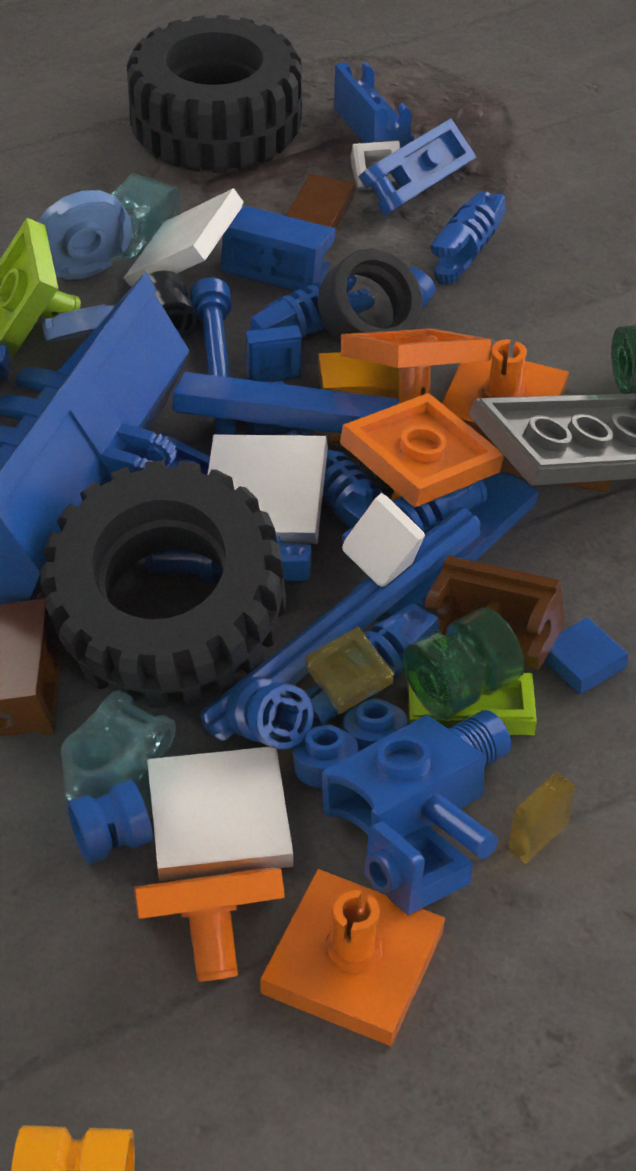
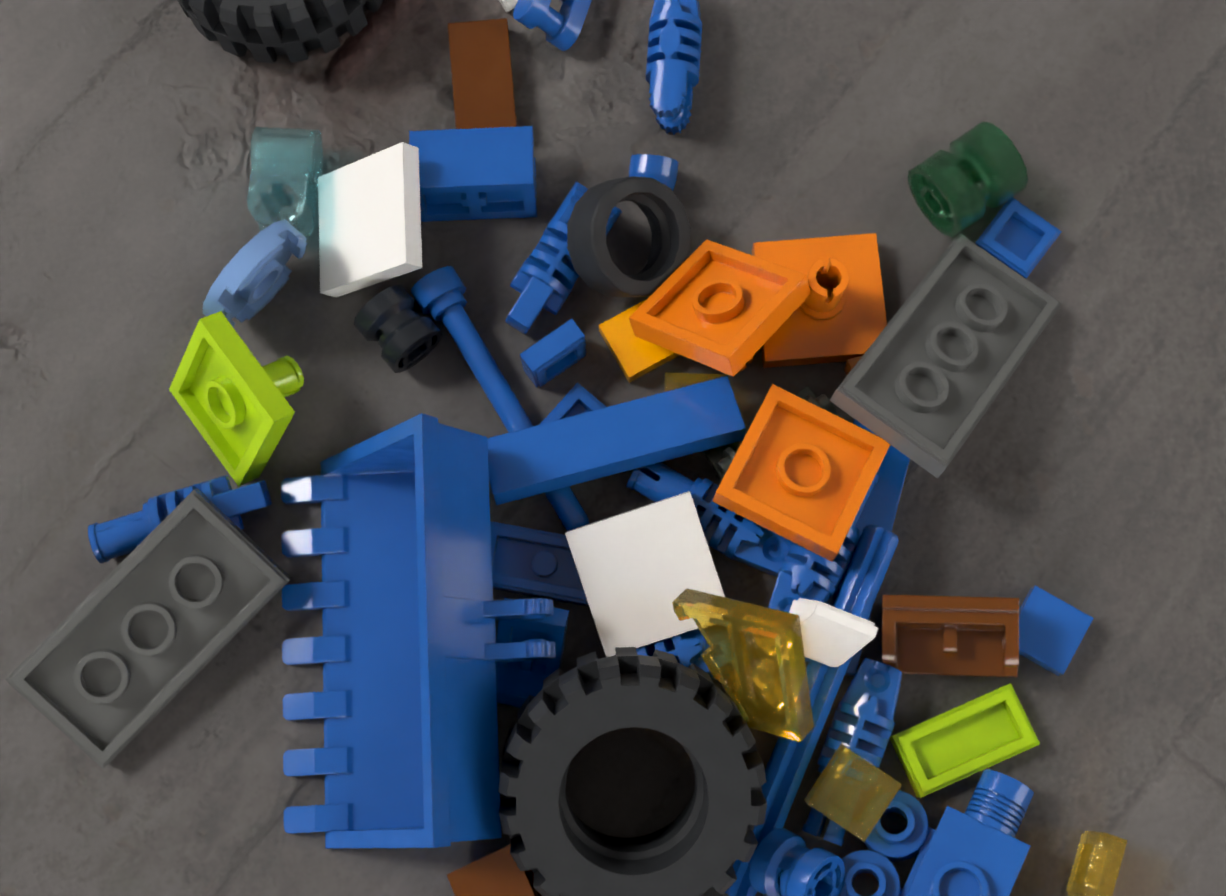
camera: 20 degrees left, 30 degrees up
(74, 323) = (342, 405): medium blue tile -> none
(316, 543) = (756, 660): none -> clear yellow wing
(470, 661) = (962, 736): clear green wheel -> none

